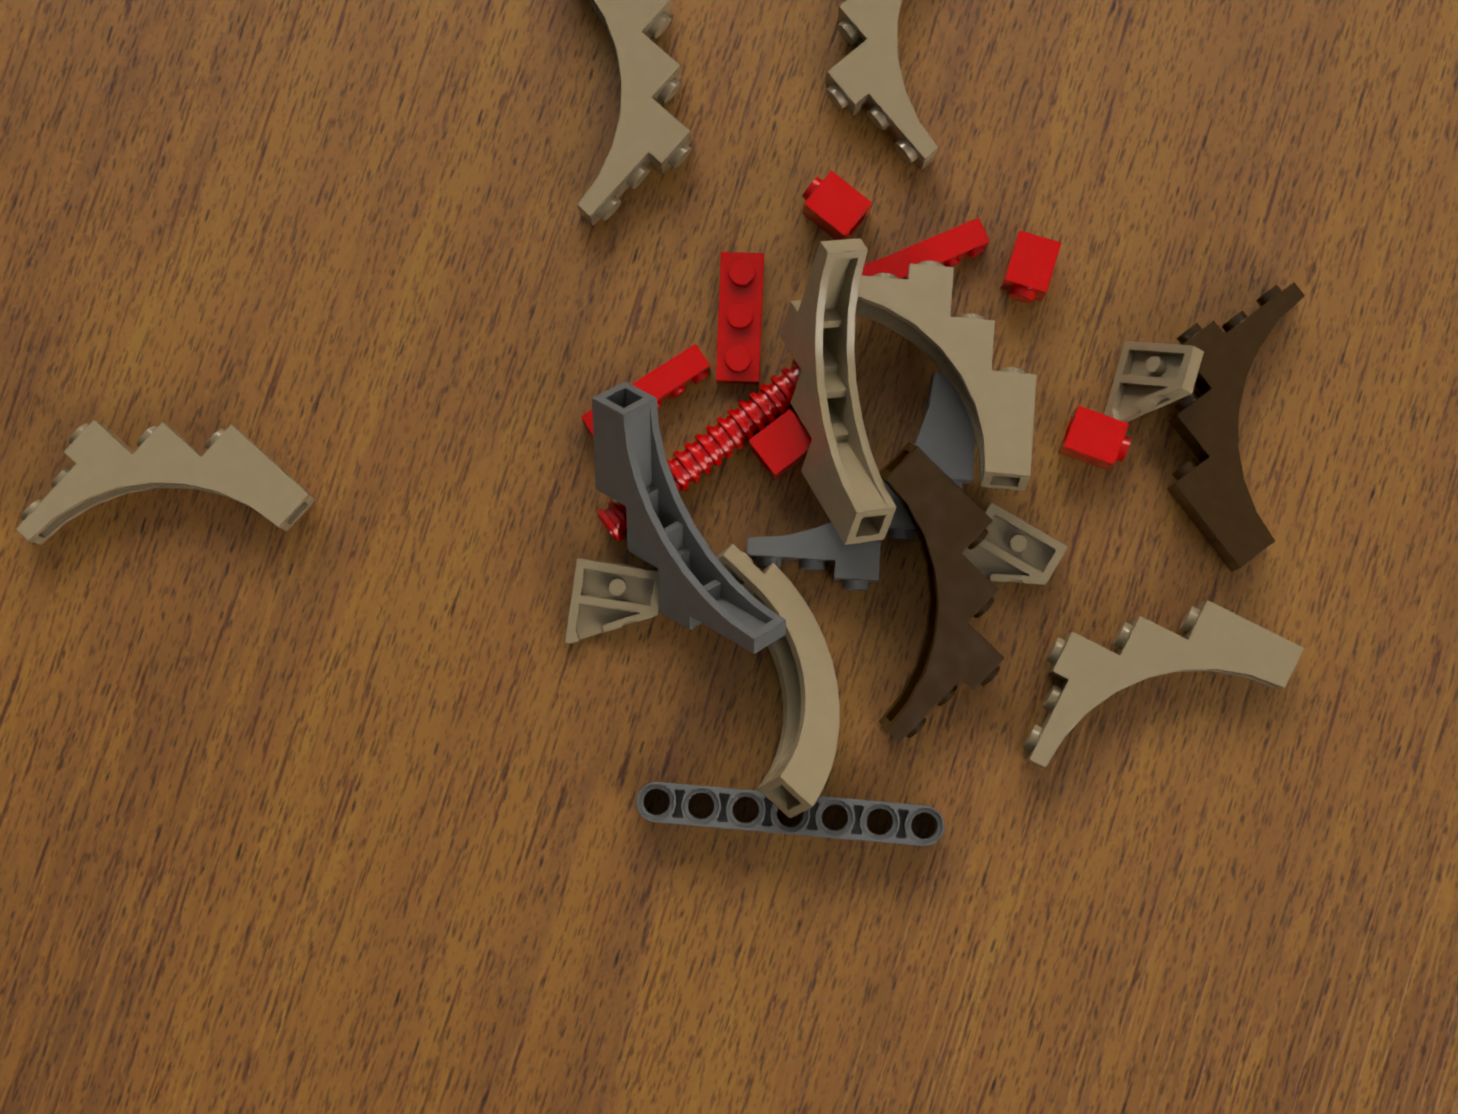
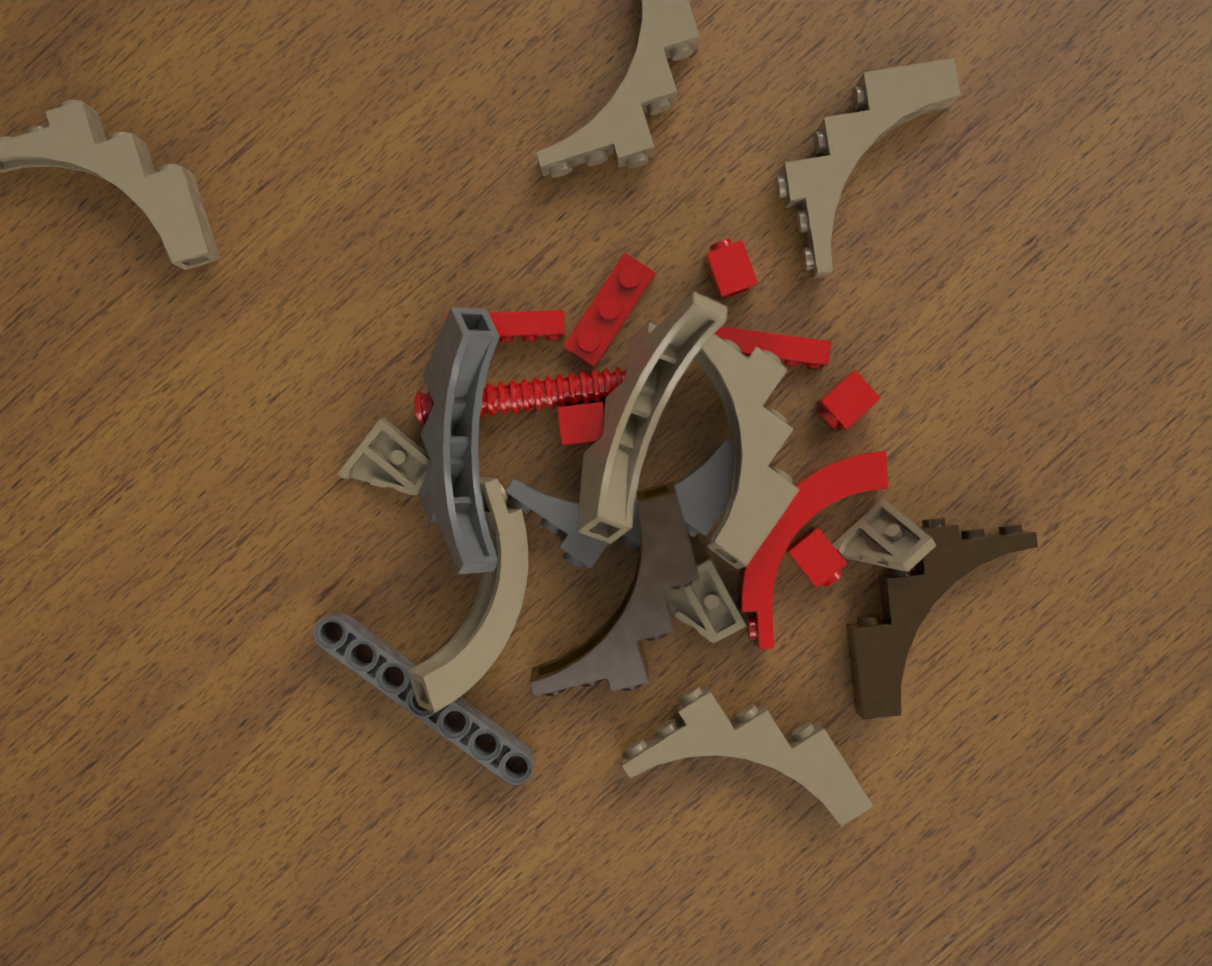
camera: 25 degrees right, 5 degrees up
(1056, 369) = (816, 492): none -> red arch

